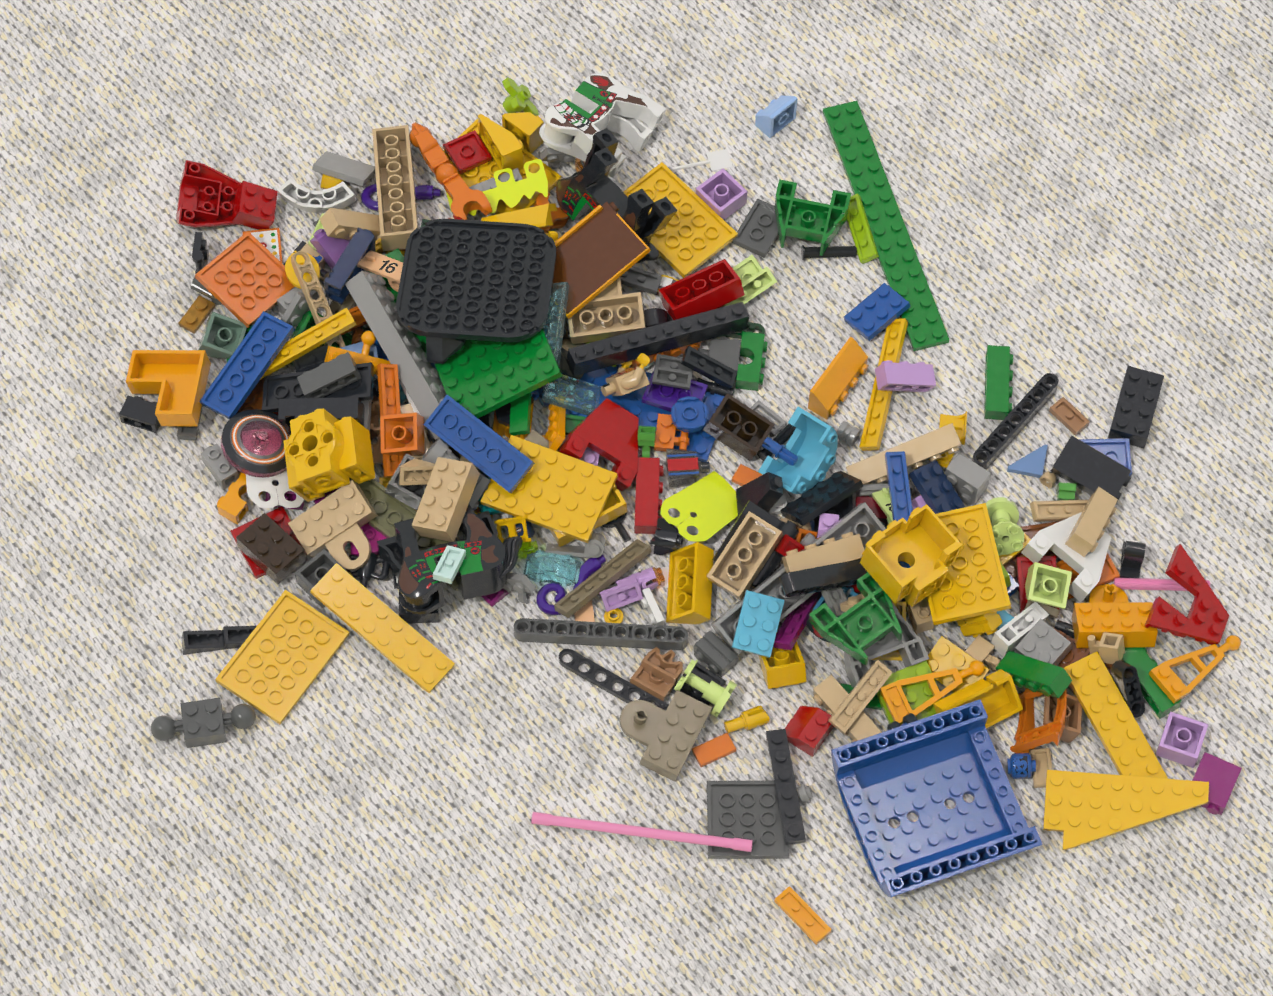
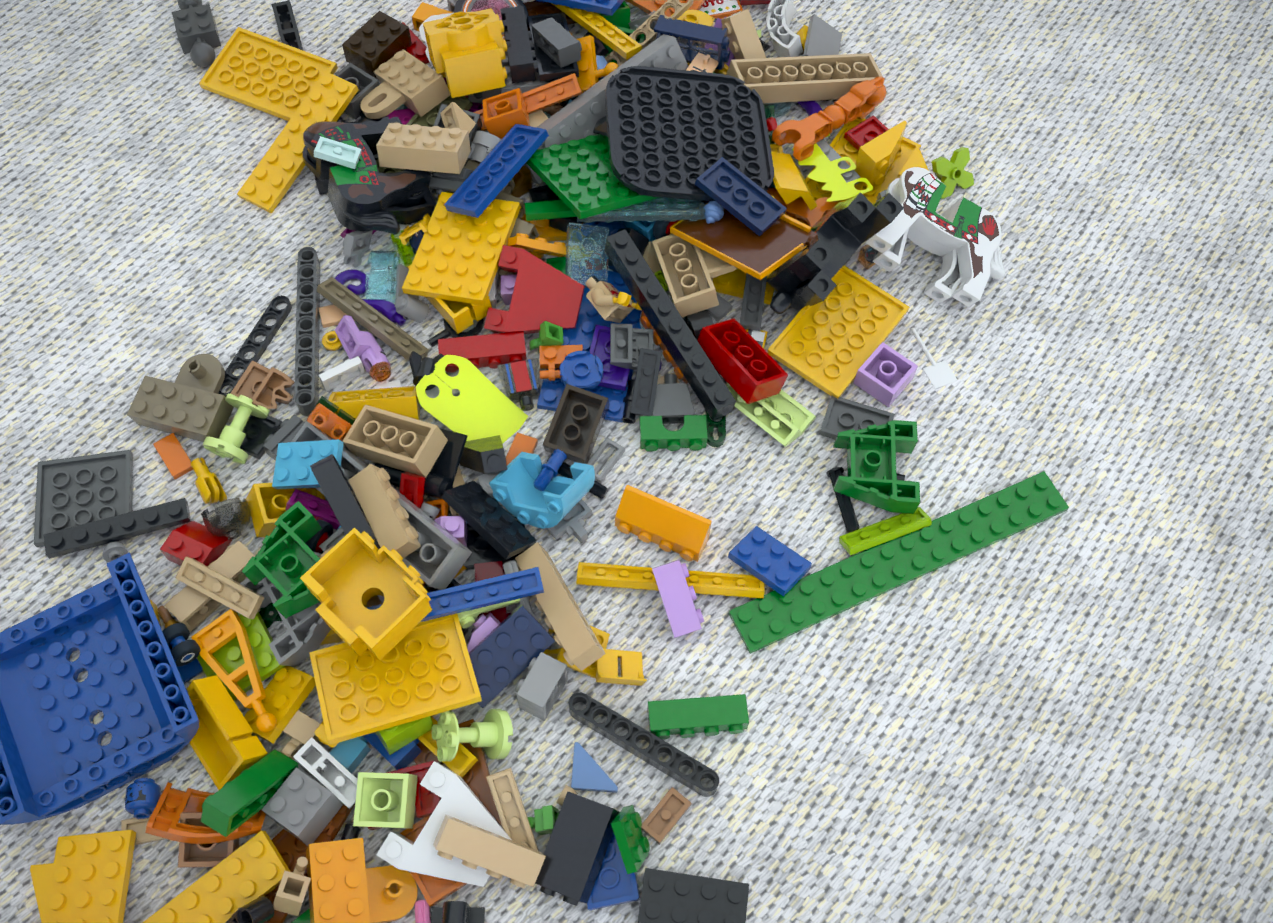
camera: 80 degrees right, 0 degrees up
(560, 249) = (740, 196): none -> dark blue plate
(563, 276) = (713, 212): none -> medium blue plate
(713, 608) = (325, 419): none -> orange hips
(733, 843) = (45, 482): bright pink piece -> none
(776, 115) = (1014, 420): light blue slope -> none
(789, 700) = (228, 518): none -> clear smoke cylinder
(848, 433) = (594, 547): light grey wheel -> none
(1090, 432) = (630, 840): none -> green plate

